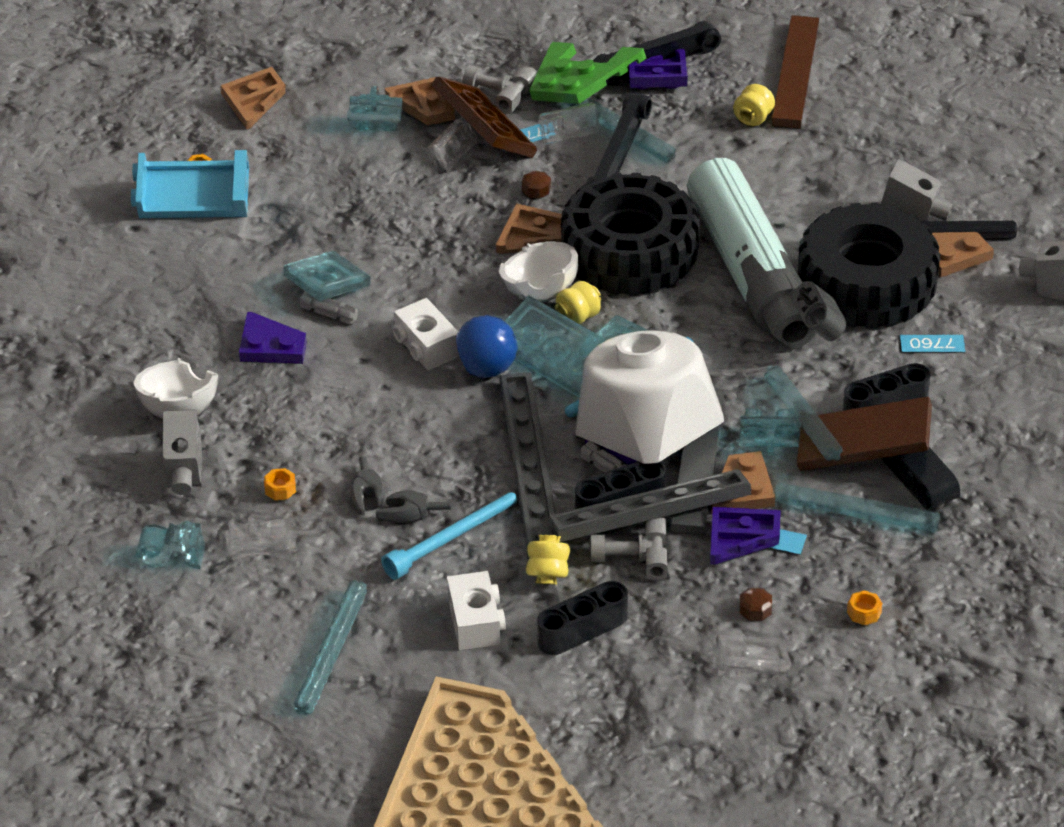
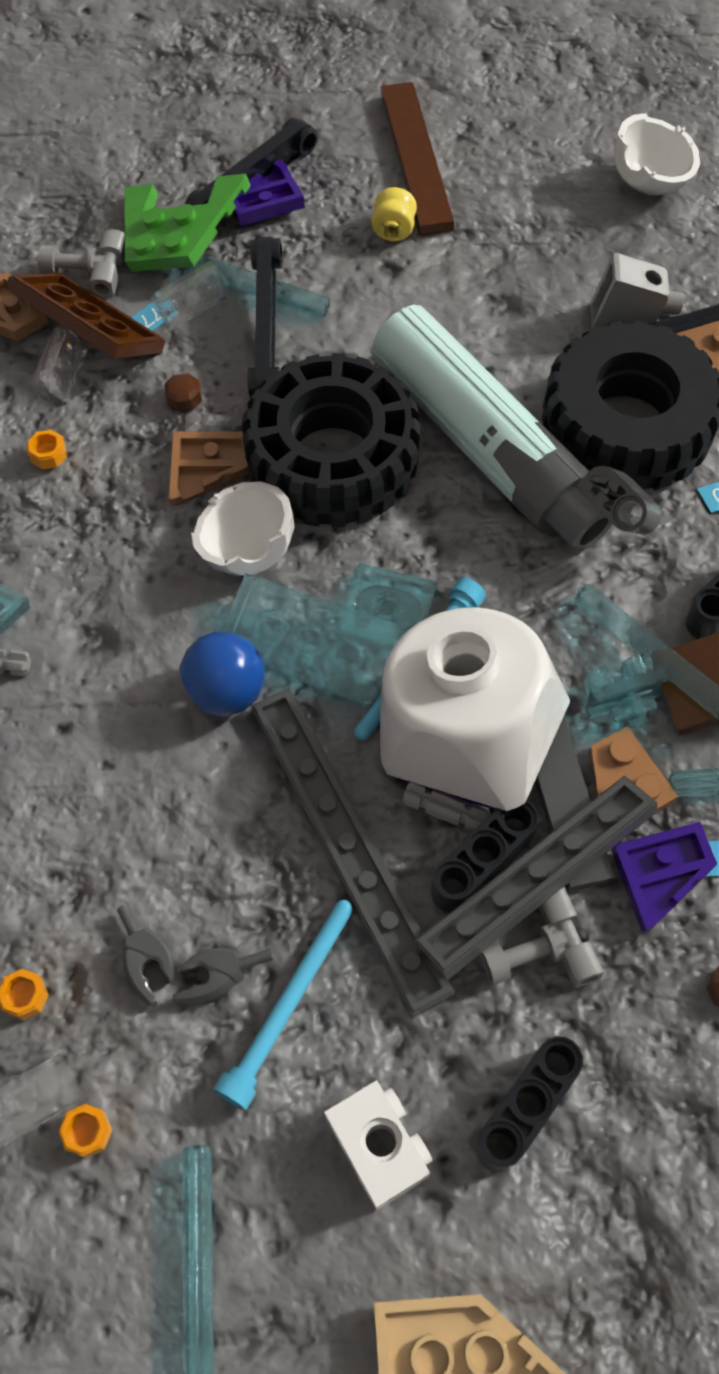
camera: 20 degrees left, 20 degrees up
(292, 558) = (85, 1131): none -> light orange tile
(420, 195) = (46, 449): none -> light orange tile
(426, 334) = (122, 649): white brick -> none
(547, 559) = (444, 1019): light yellow piece -> none
(579, 302) = (308, 562): light yellow piece -> none
(984, 108) = (654, 155): none -> white cylinder

